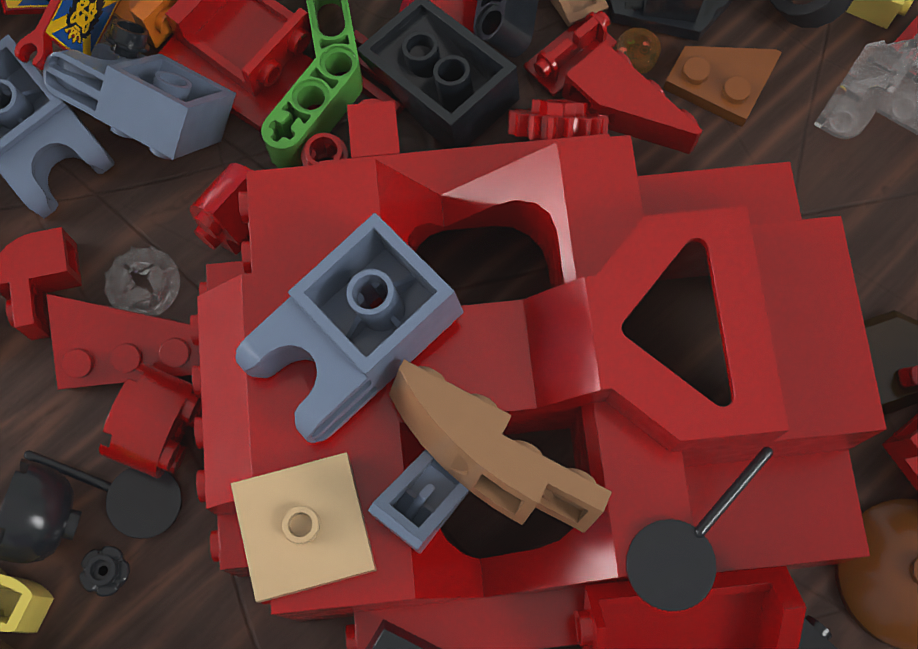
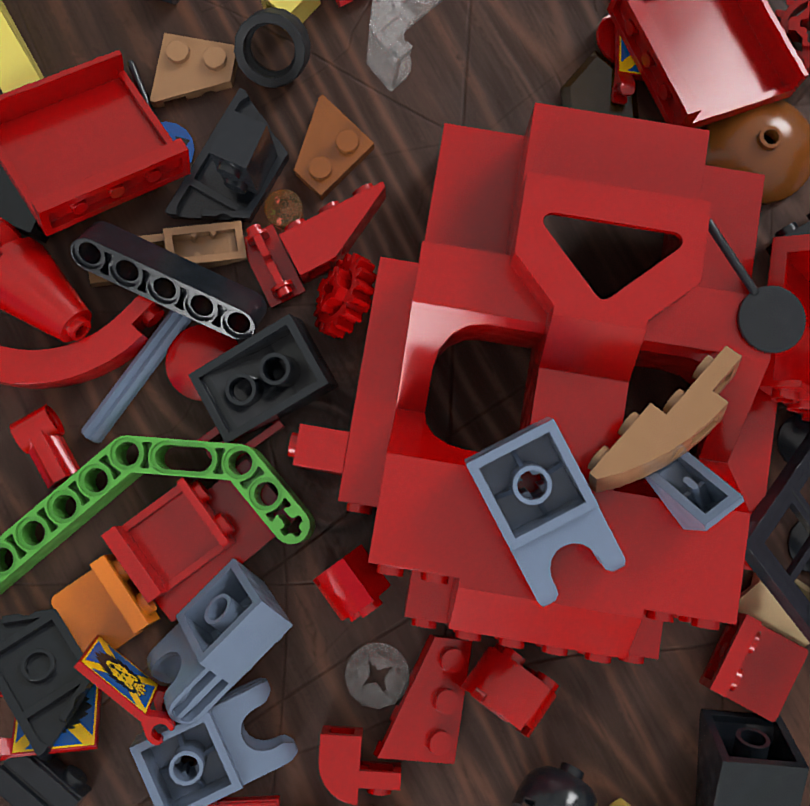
camera: 75 degrees left, 10 degrees up
(117, 571) = (603, 745): black plate -> none
(127, 38) = (158, 641): black plate -> none
(134, 500) = (562, 723): black piece -> none
(302, 527) = (681, 585): tan plate -> none
(323, 147) = (308, 491): red cone -> none

